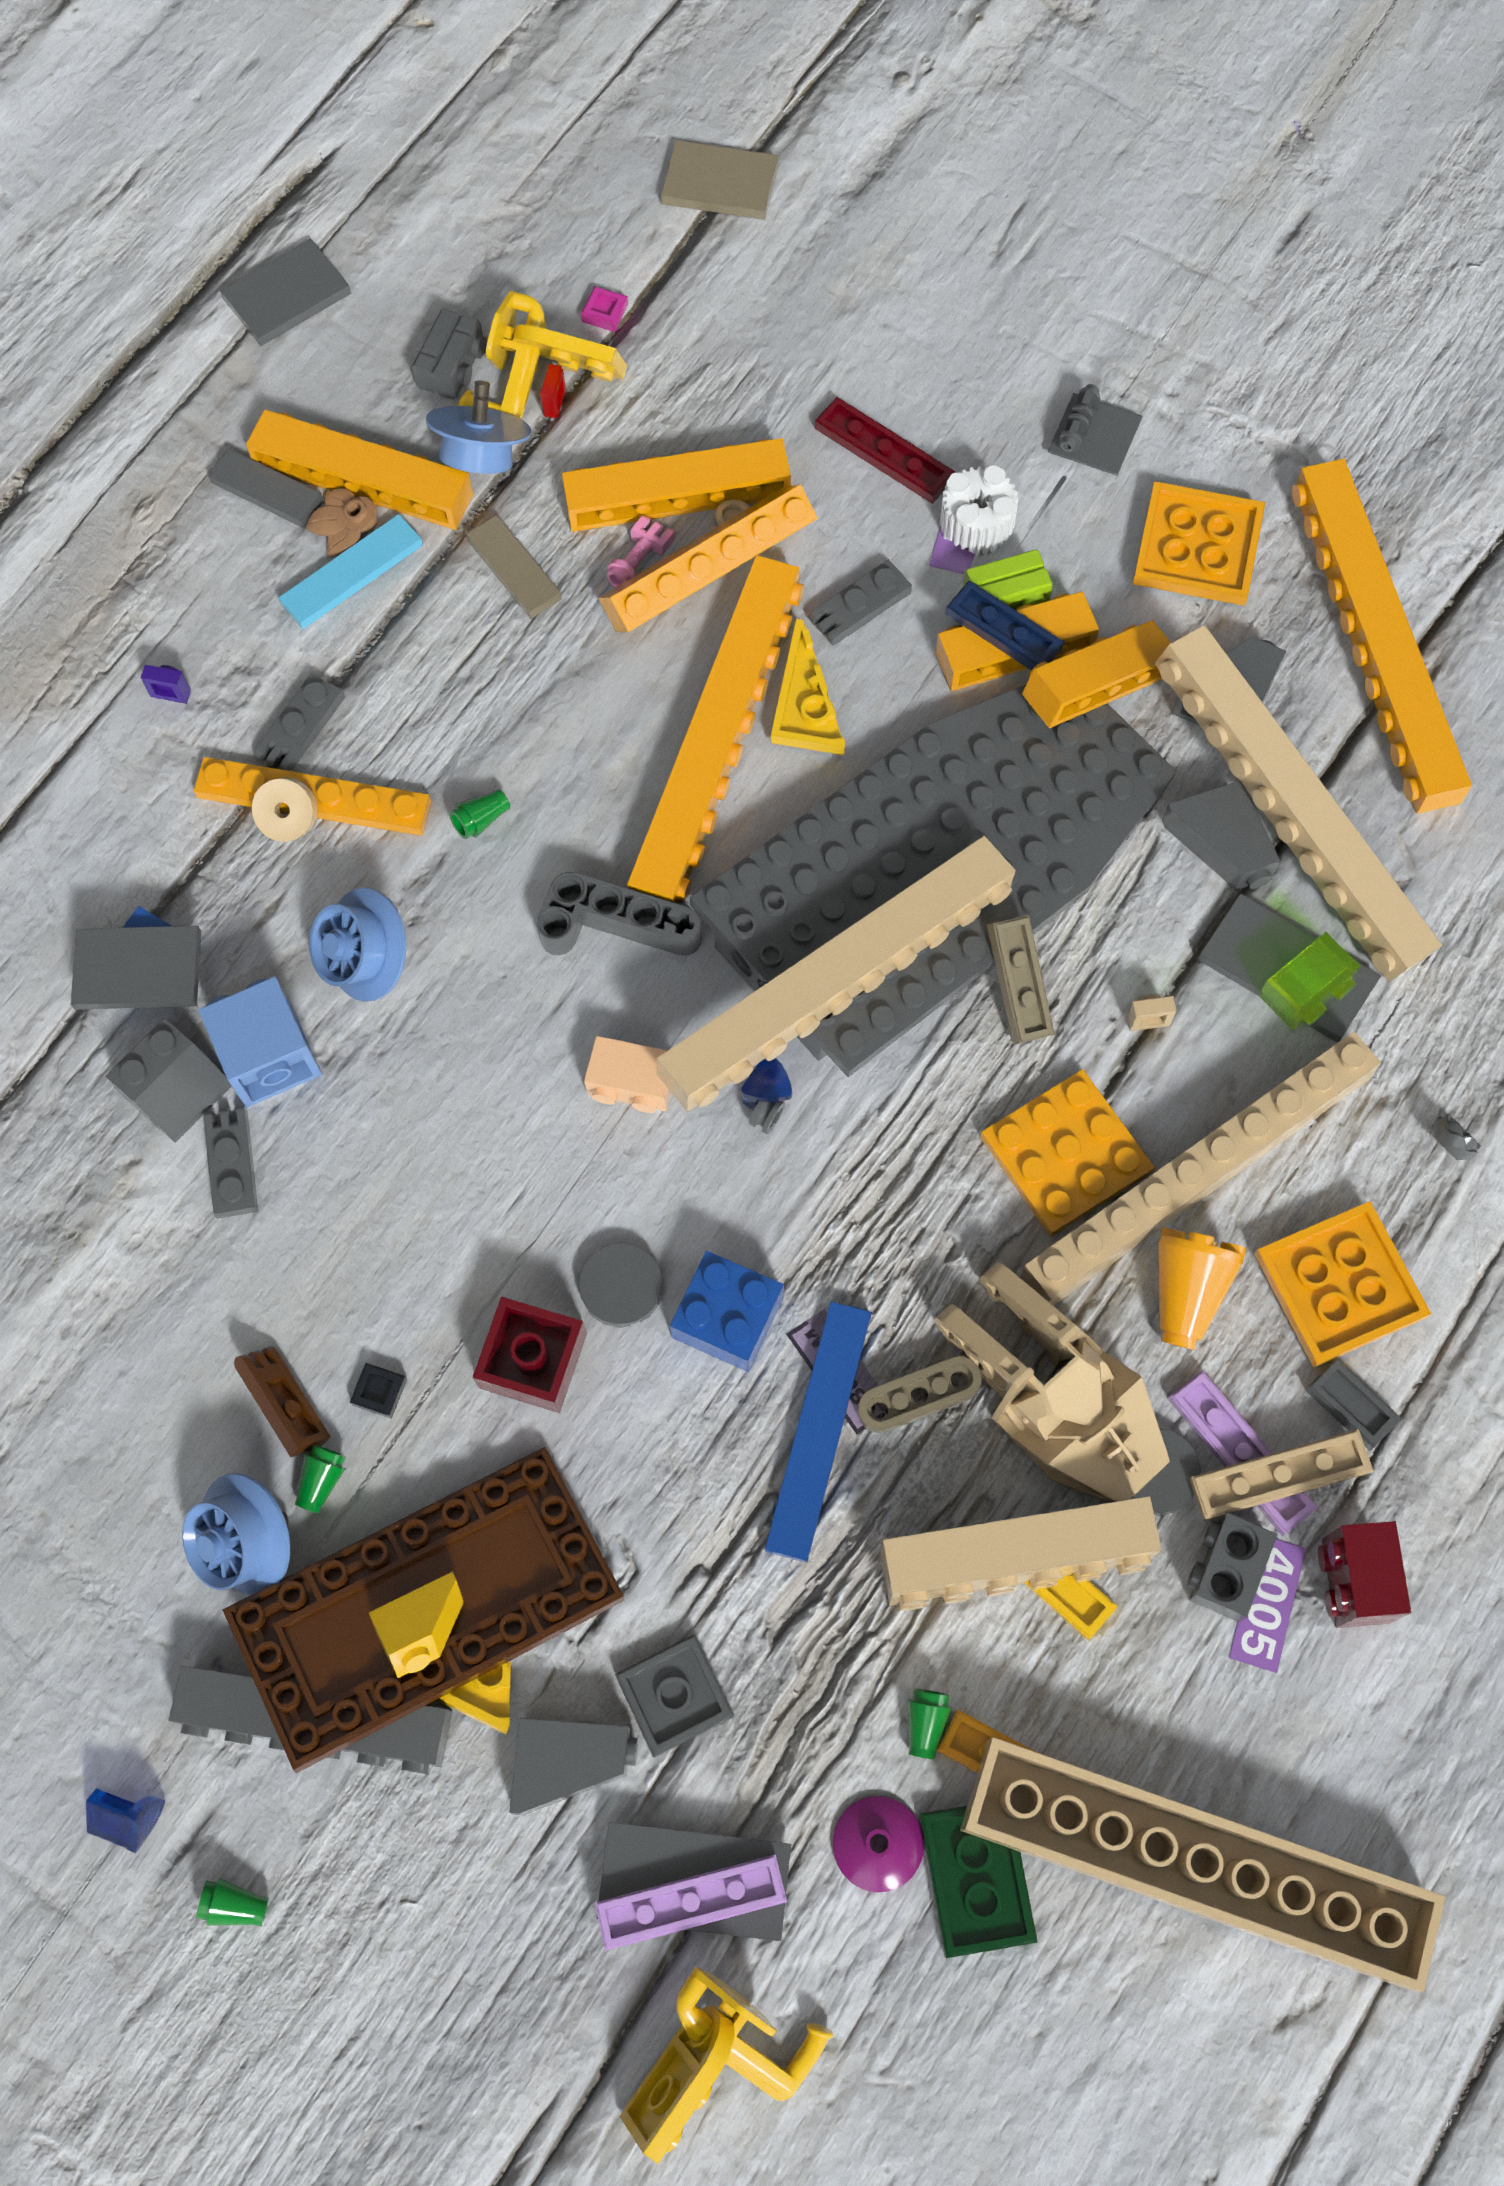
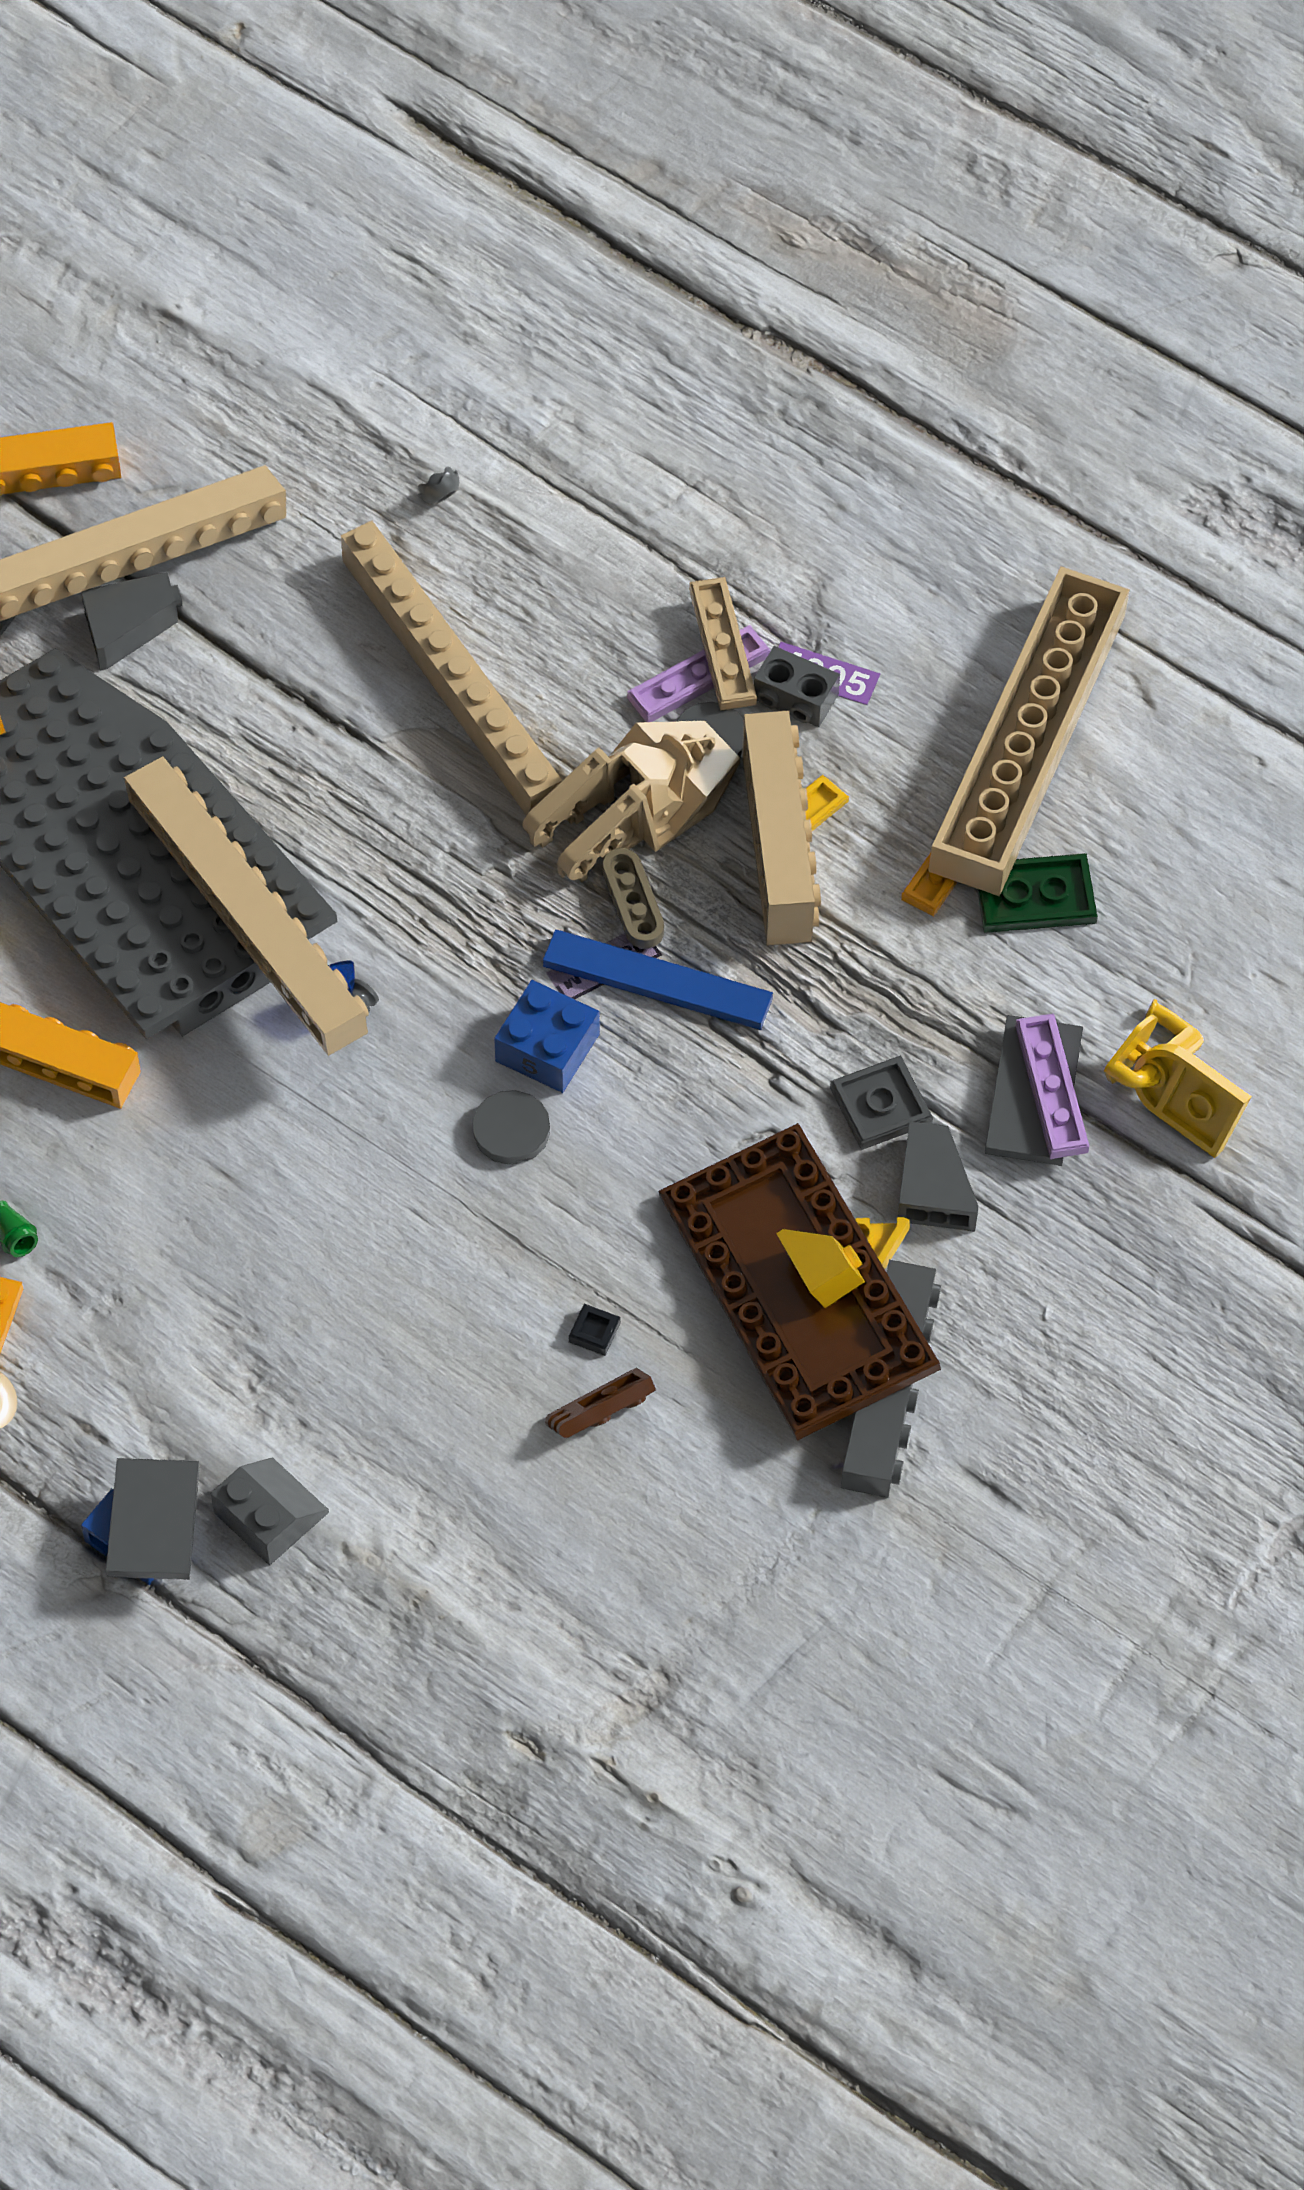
camera: 90 degrees left, 10 degrees down
(122, 1820) = (971, 1531): clear blue tile -> none
(230, 1163) = (355, 1457): dark grey hinge -> none
(230, 1905) = (1044, 1449): green cone -> none
(237, 1536) = (726, 1421): medium blue piece -> none
(259, 1041) = (242, 1410): medium blue brick -> none
(318, 1477) = (675, 1373): green cone -> none
(359, 944) = (151, 1318): medium blue piece -> none
(530, 1354) = (576, 1189): dark red brick -> none
(626, 1075) = (309, 1104): light nougat brick -> none
(661, 933) = (148, 1104): dark grey beam -> none
(852, 1844) = (1004, 975): magenta dish -> none
(927, 1719) = (911, 914): green cone -> none
(1020, 979) = (256, 781): dark tan tile -> none
(1066, 1152) = (419, 772): light orange plate -> none
(1151, 1012) = (295, 691): tan plate -> none
(1192, 1283) = (554, 683): light orange cone -> none
(1258, 943) = (262, 588): dark grey tile -> none
(1310, 981) = (286, 565): clear neon green brick -> none
(1342, 1284) = (560, 583): light orange plate -> none
(1353, 1403) = (661, 592): dark grey tile -> none
(1364, 1575) = (811, 590): dark red brick -> none

